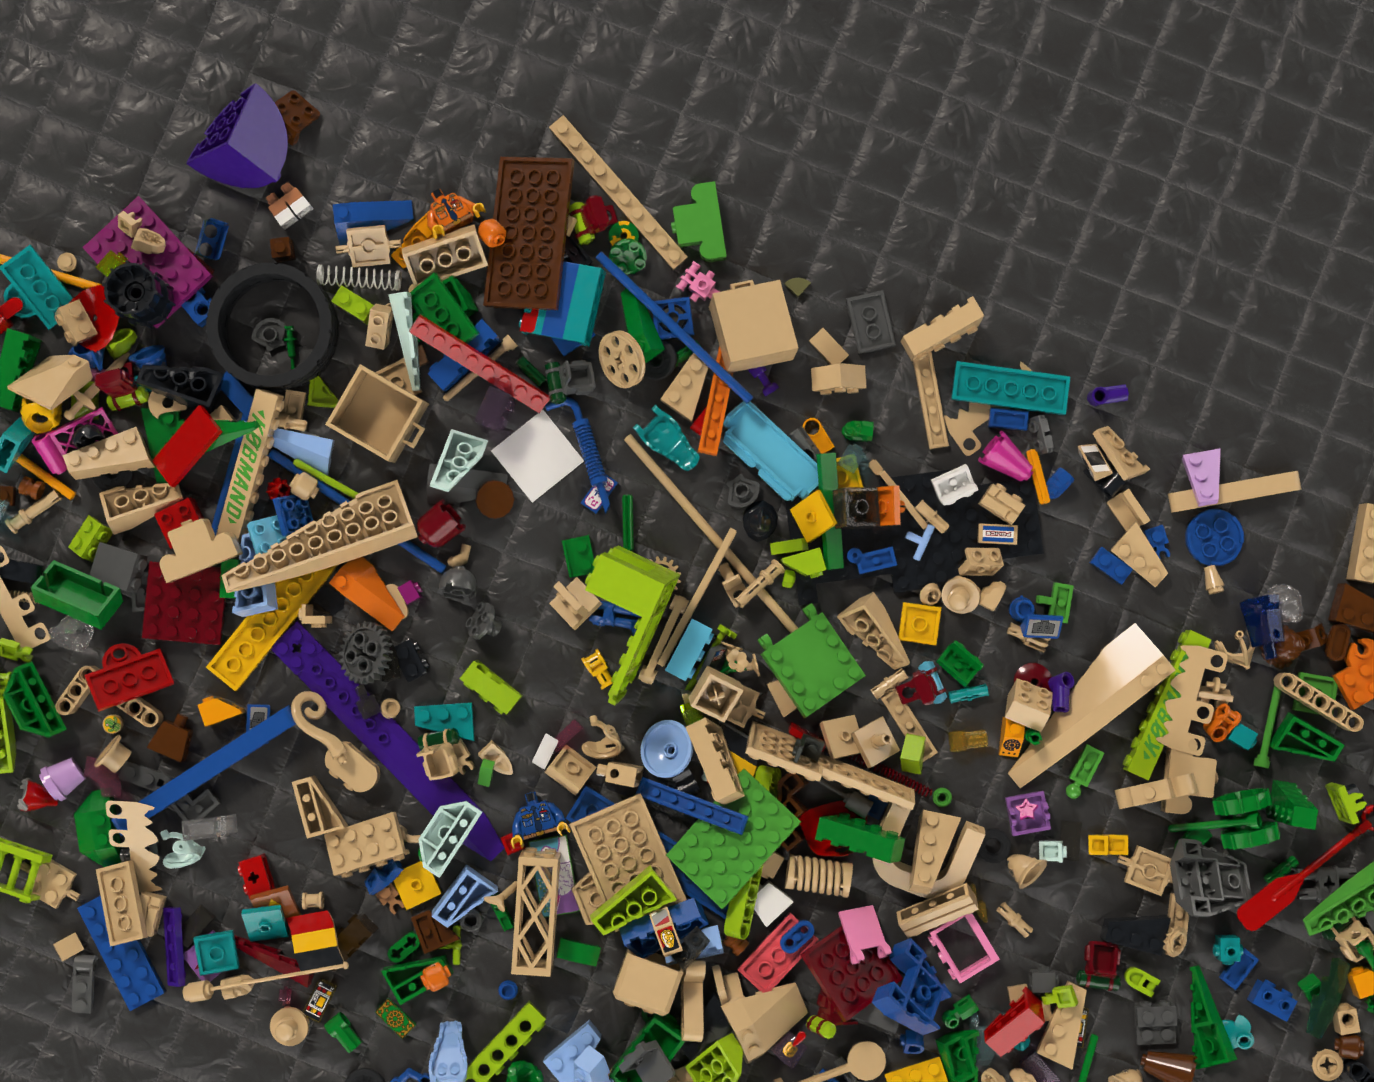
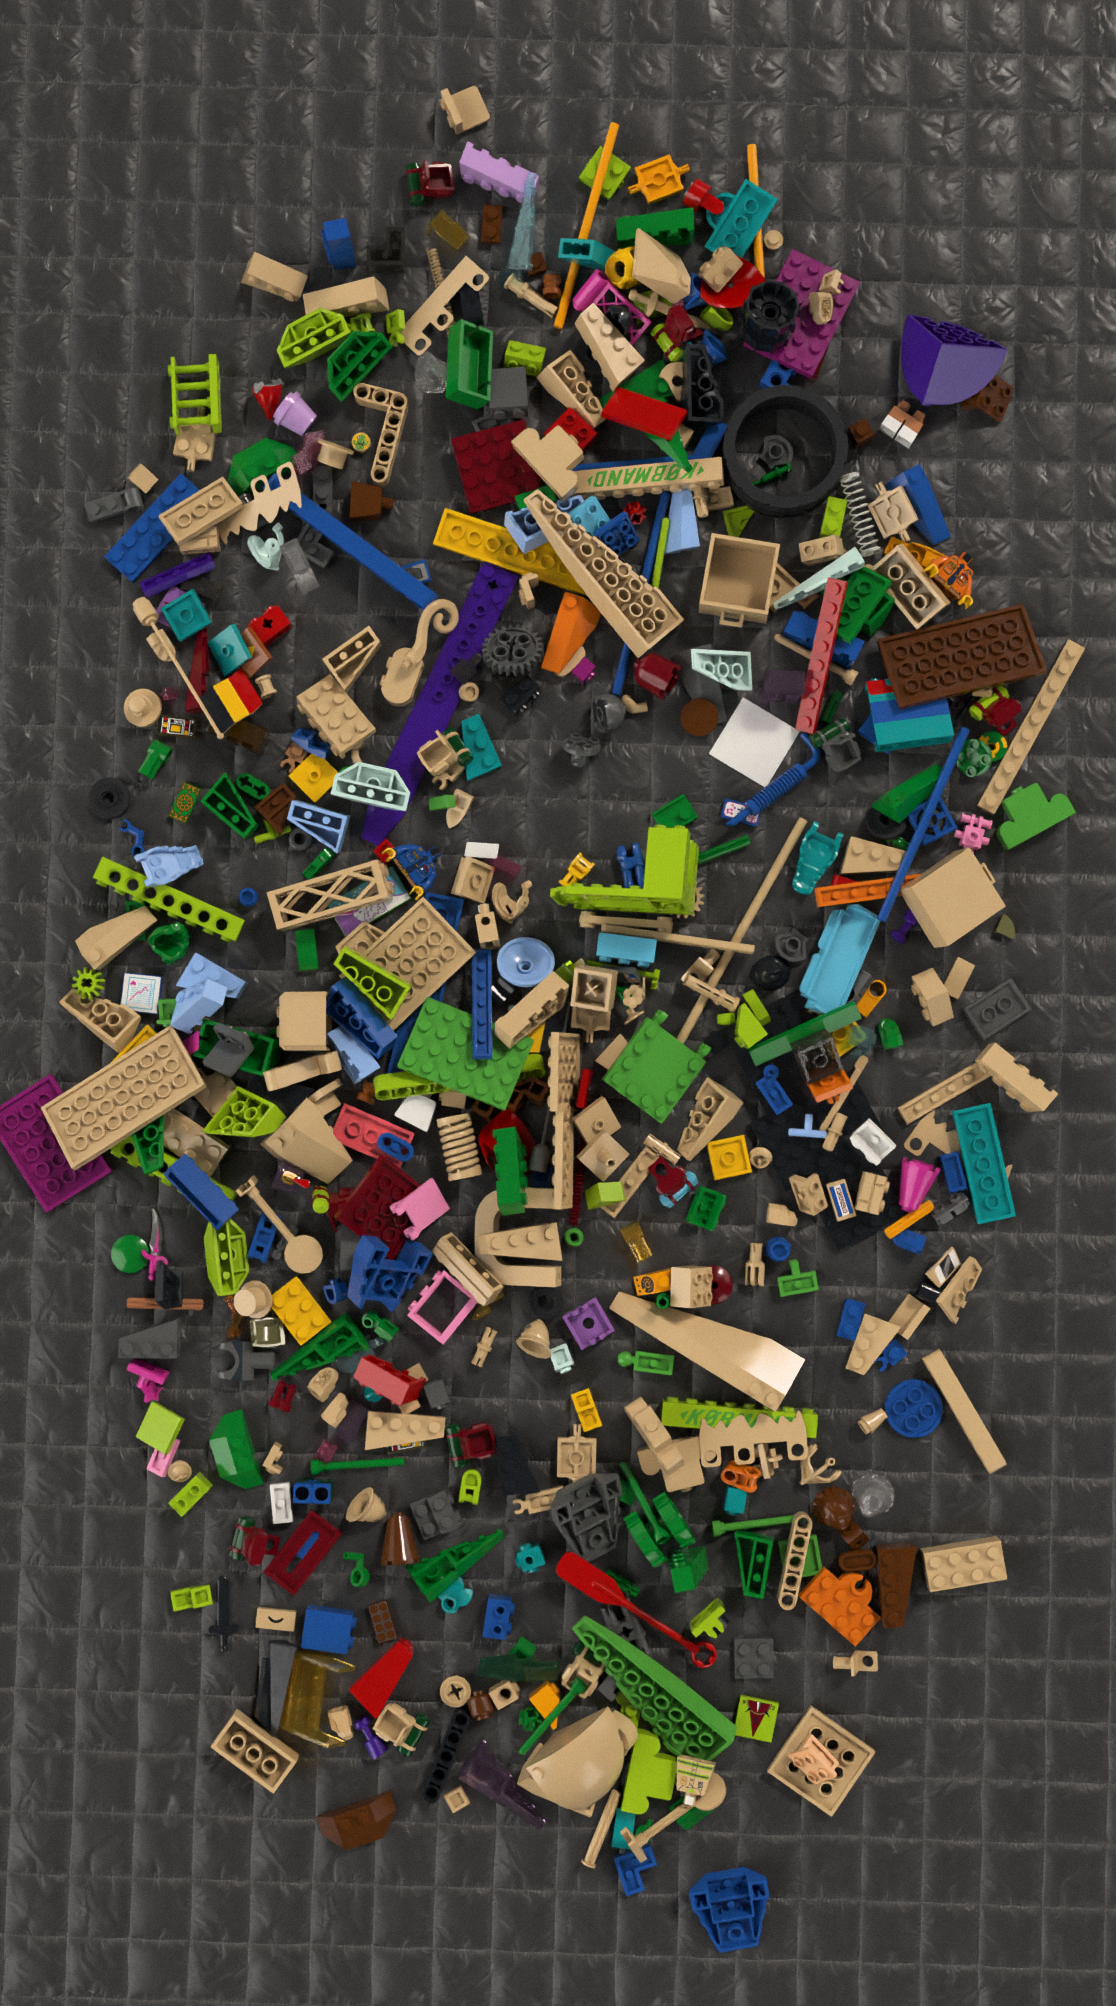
camera: 70 degrees right, 0 degrees up
(110, 261) = (791, 279): clear neon green brick -> none
(127, 676) = (410, 439): red plate -> none
(218, 710) = (408, 532): light orange slope -> none
(220, 238) = (848, 372): blue piece -> none
(304, 486) = (646, 535): tan head -> none
(435, 977) = (238, 823): orange head -> none
(490, 687) = (522, 777): lime wedge -> none
(492, 233) = (948, 621): orange head -> none
(499, 899) = (330, 857): tan piece -> none
(574, 602) = (630, 826): tan bracket -> none
(621, 359) = (875, 786): tan wedge -> none
(665, 932) = (357, 1020): slope -> none
(692, 947) = (351, 1051): clear smoke slope -> none
(809, 747) = (576, 1091): pearl dark grey bracket -> none
(813, 516) = (794, 1019): yellow plate -> none
(960, 595) = (770, 1186): tan plate -> none
(968, 693) = (680, 1227): teal pin -> none
(1026, 809) = (591, 1320): piece -> none
(1041, 626) = (769, 1272): slope -> none
(1060, 686) = (717, 1311): dark purple piece -> none
(1063, 996) = (430, 1414): lime plate -> none
(1109, 395) = (1012, 1259): dark purple piece -> none
(1178, 935) = (526, 1507): tan gear -> none
(1204, 475) = (969, 1375): lavender wing -> none
(1236, 973) = (514, 1576): blue tile -> none
(1263, 623) = (850, 1481): clear blue piece -> none

